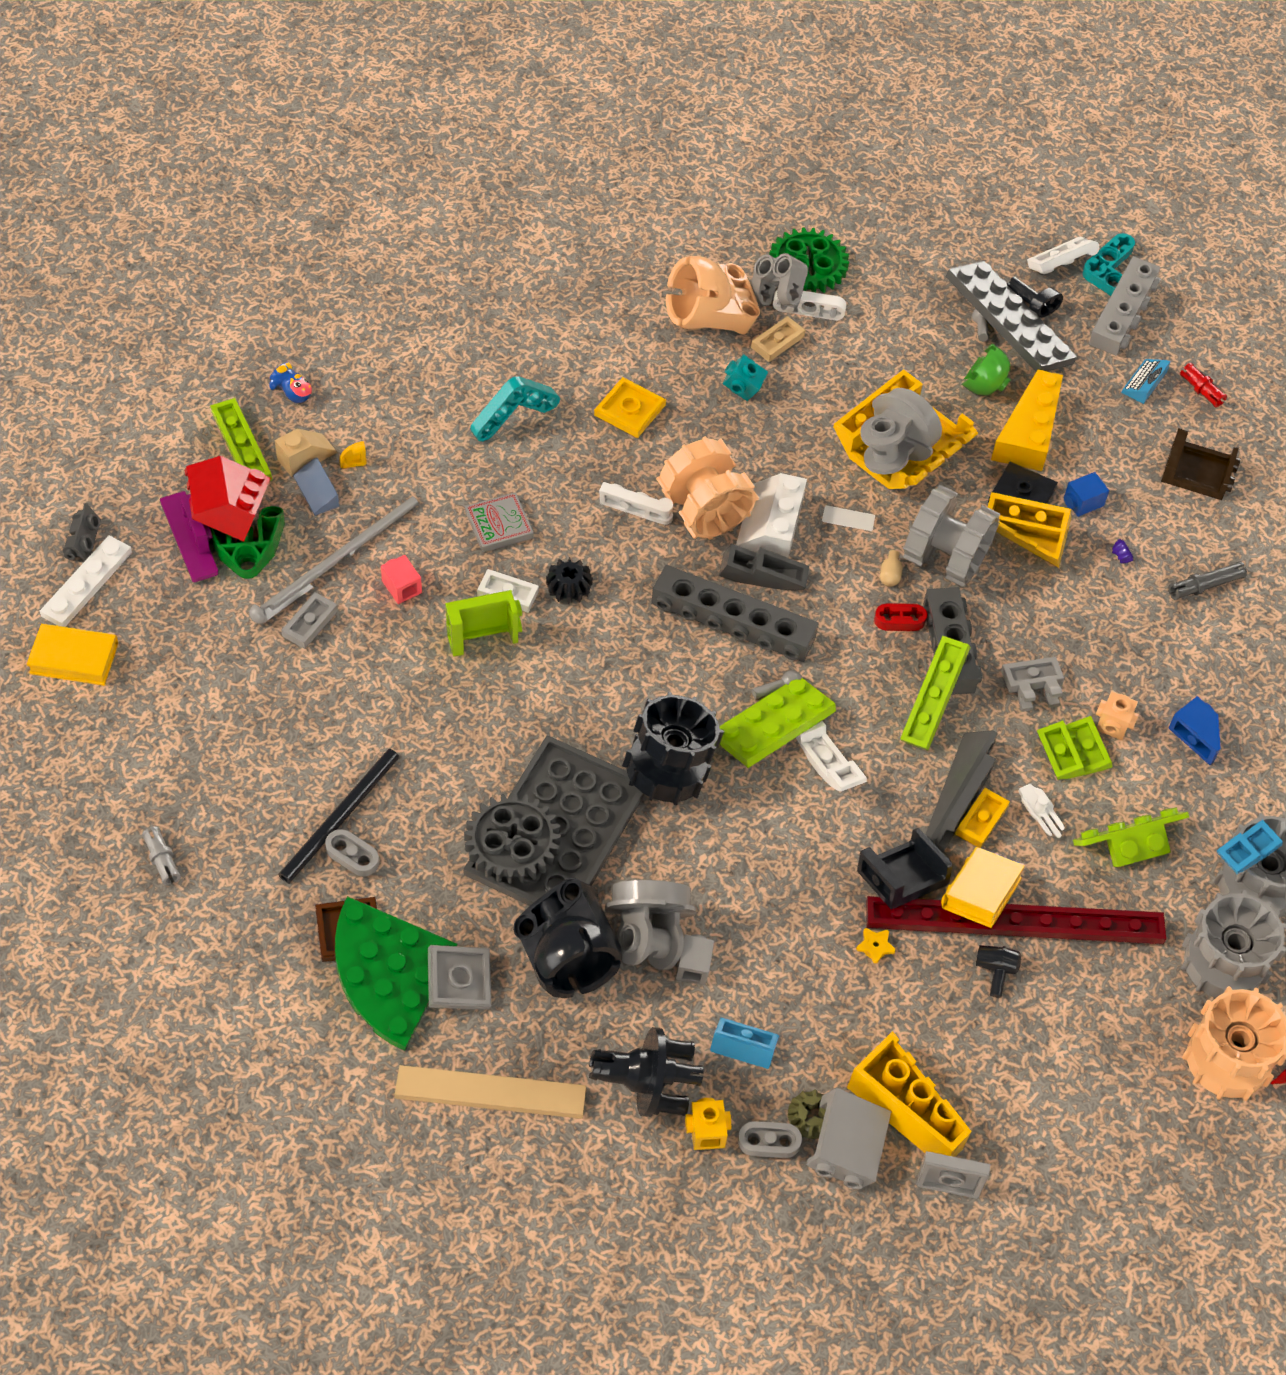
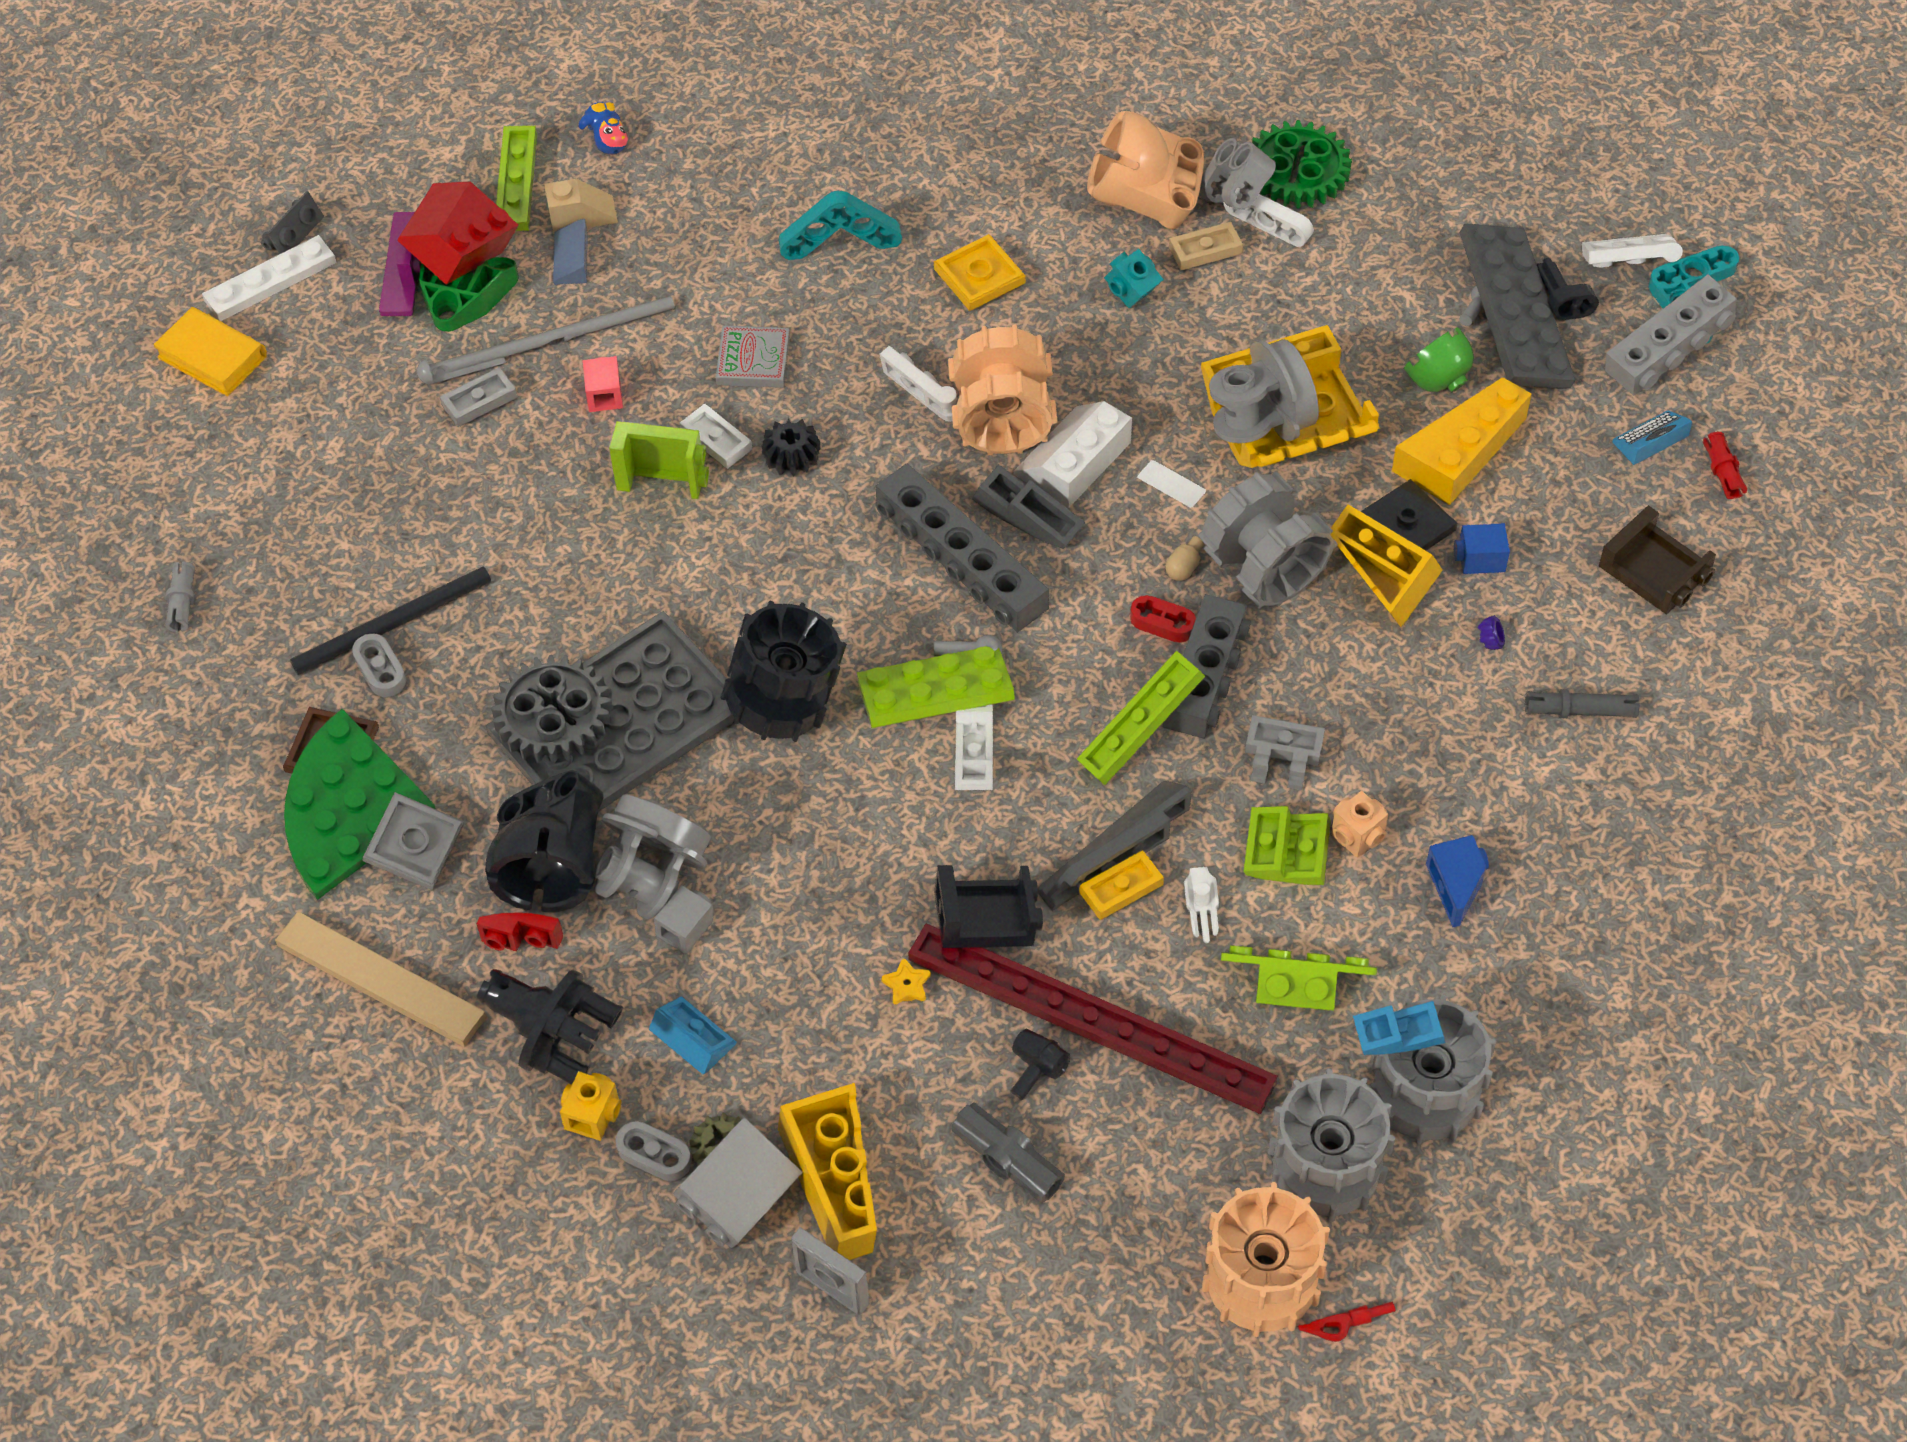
camera: 30 degrees right, 0 degrees up
(353, 456) = (631, 230): yellow tile -> none
(567, 1018) = (509, 929): none -> red slope
(982, 887) = (1067, 962): yellow piece -> none
(1016, 1039) = (1008, 1152): none -> dark grey piece

